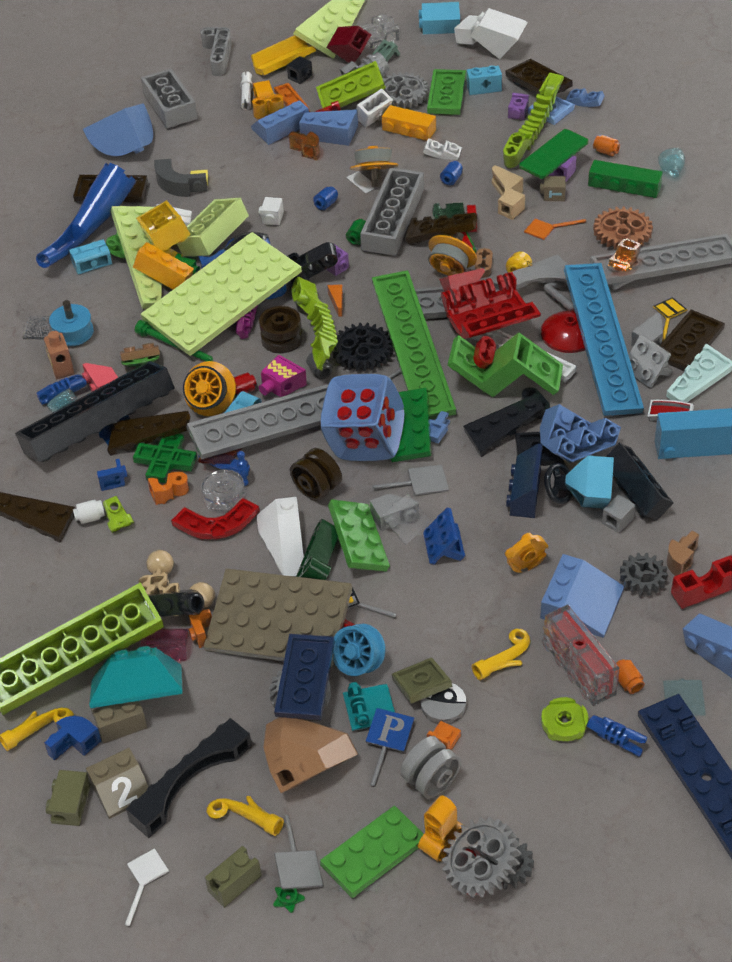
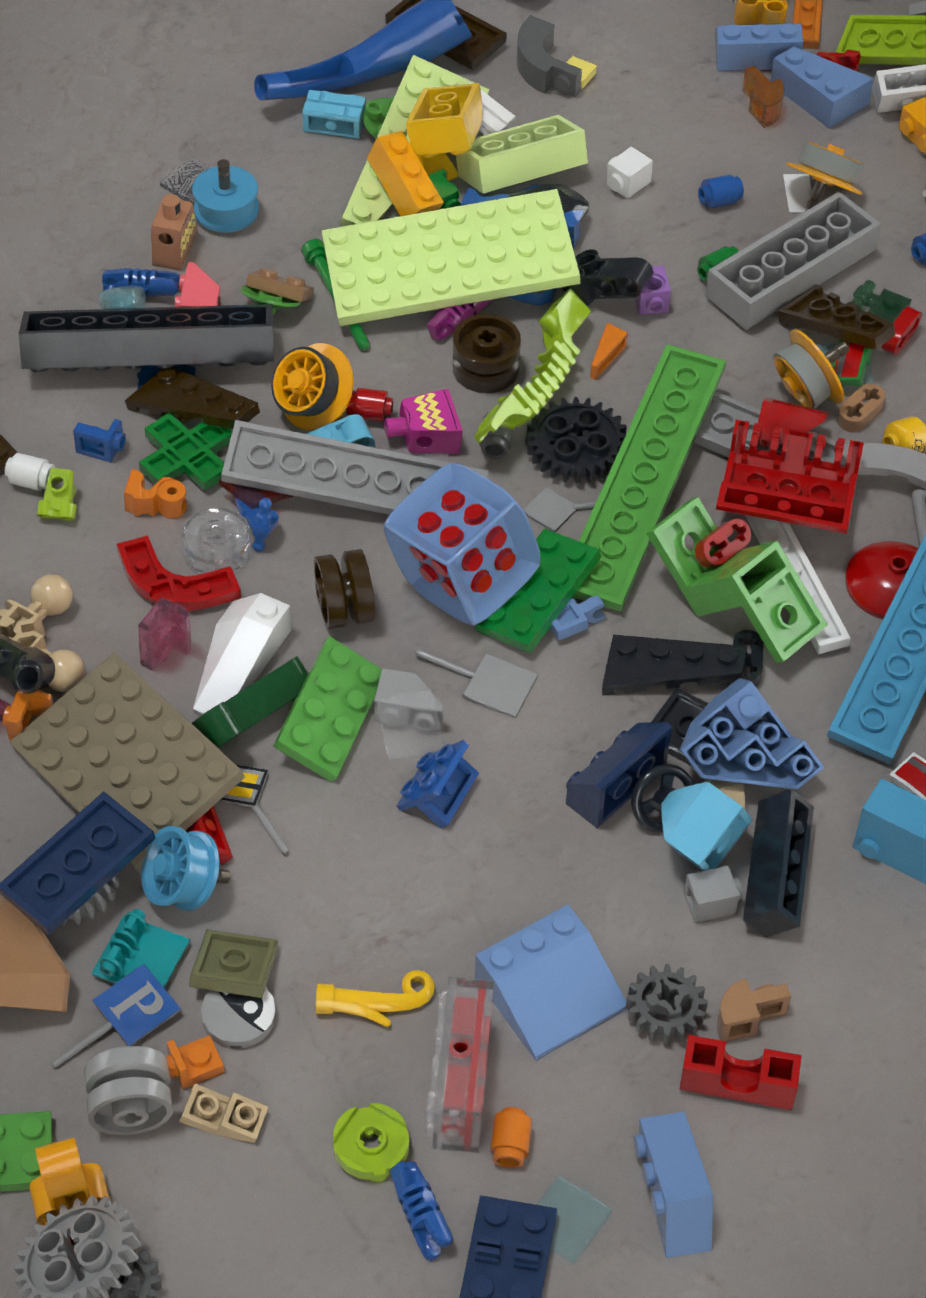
camera: 30 degrees right, 5 degrees up
(243, 544) = (162, 630): none -> clear pink bracket
(485, 752) = (223, 1115): none -> tan slope
(526, 553) = (524, 871): light orange plate -> none

